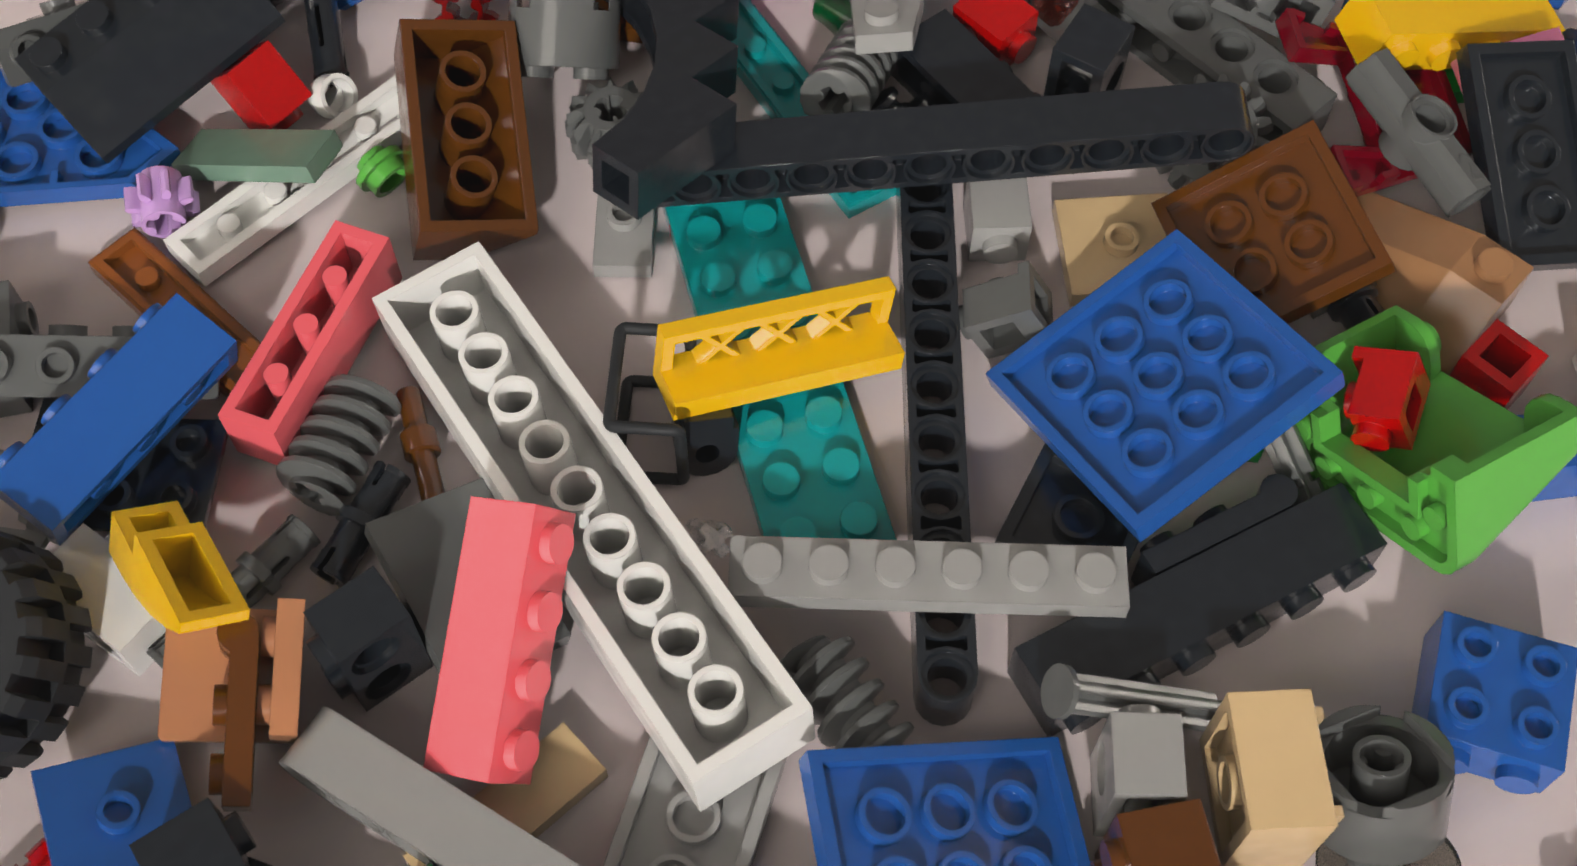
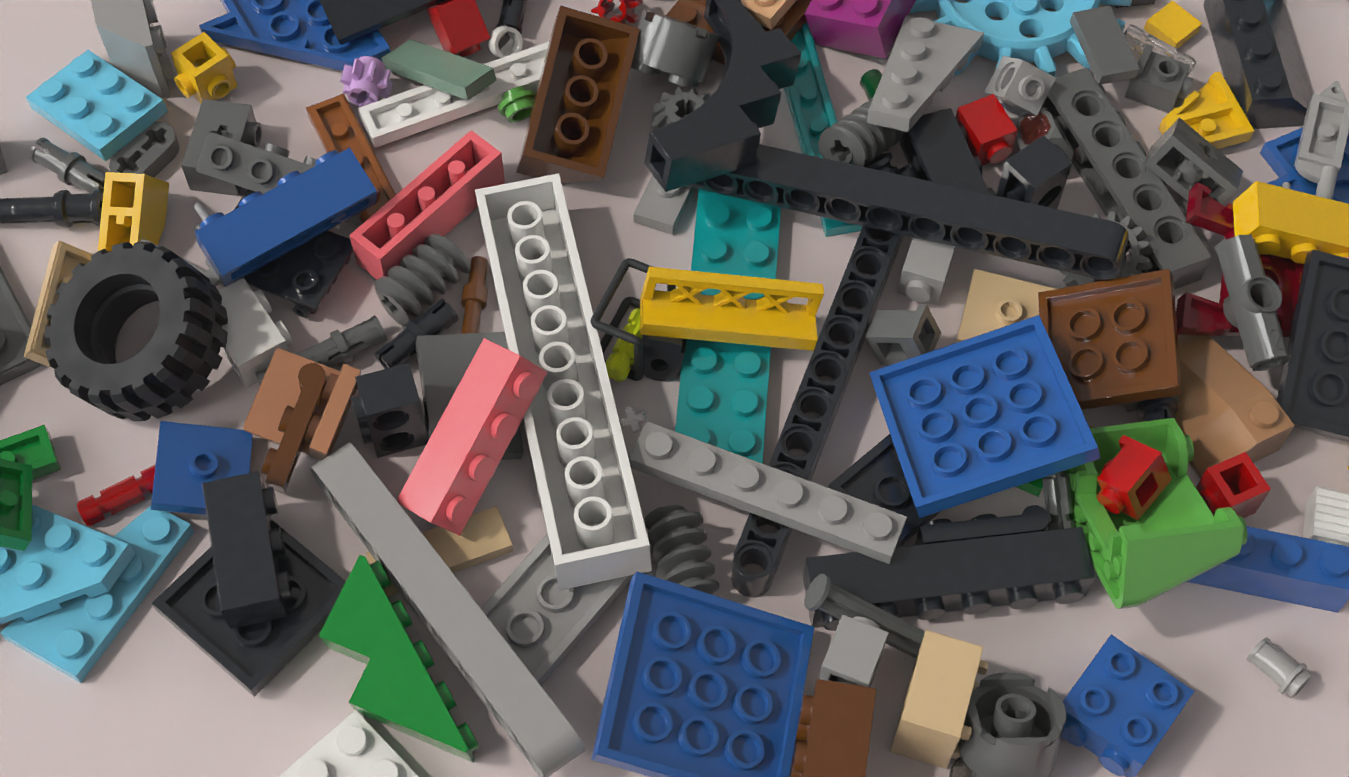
camera: 20 degrees right, 0 degrees up
(174, 568) = (287, 323): yellow slope -> none
(653, 450) = (623, 356): none -> neon yellow axle

